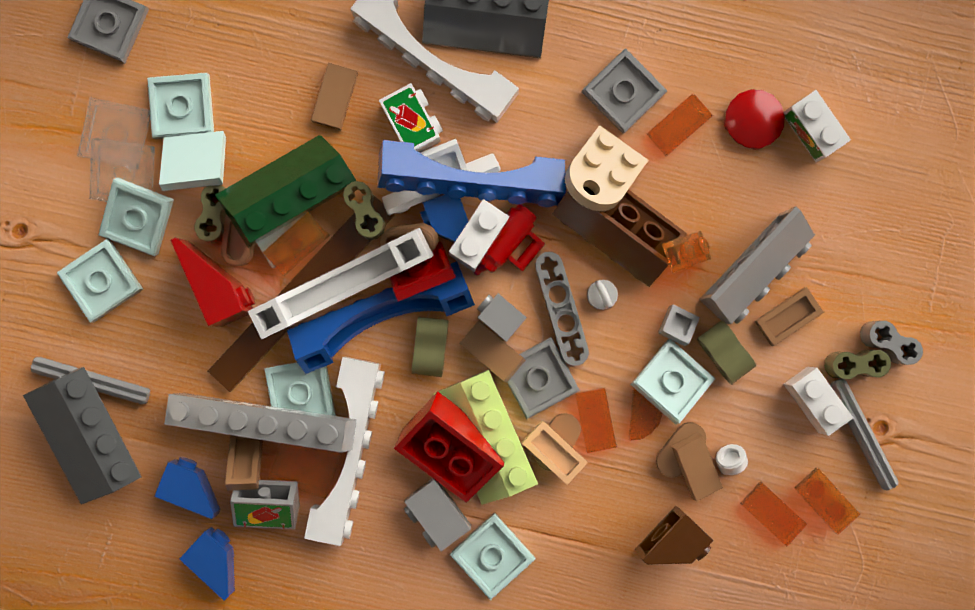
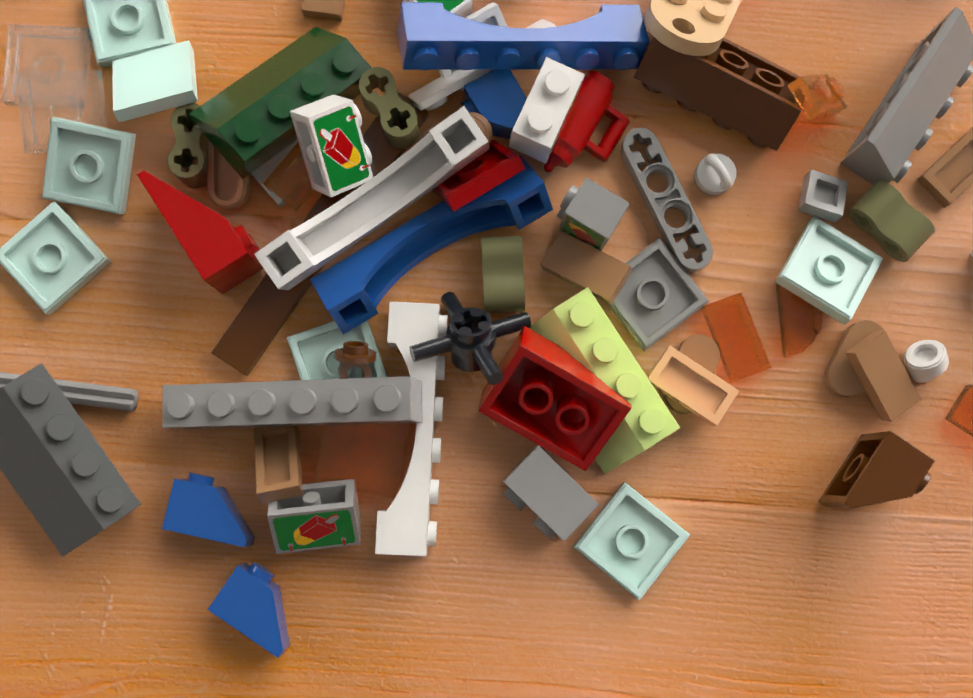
camera: 10 degrees left, 5 degrees down
(312, 392) = (354, 355): none -> reddish brown plate
(317, 236) = (332, 144): none -> brick
(397, 393) = (470, 338): none -> black bar

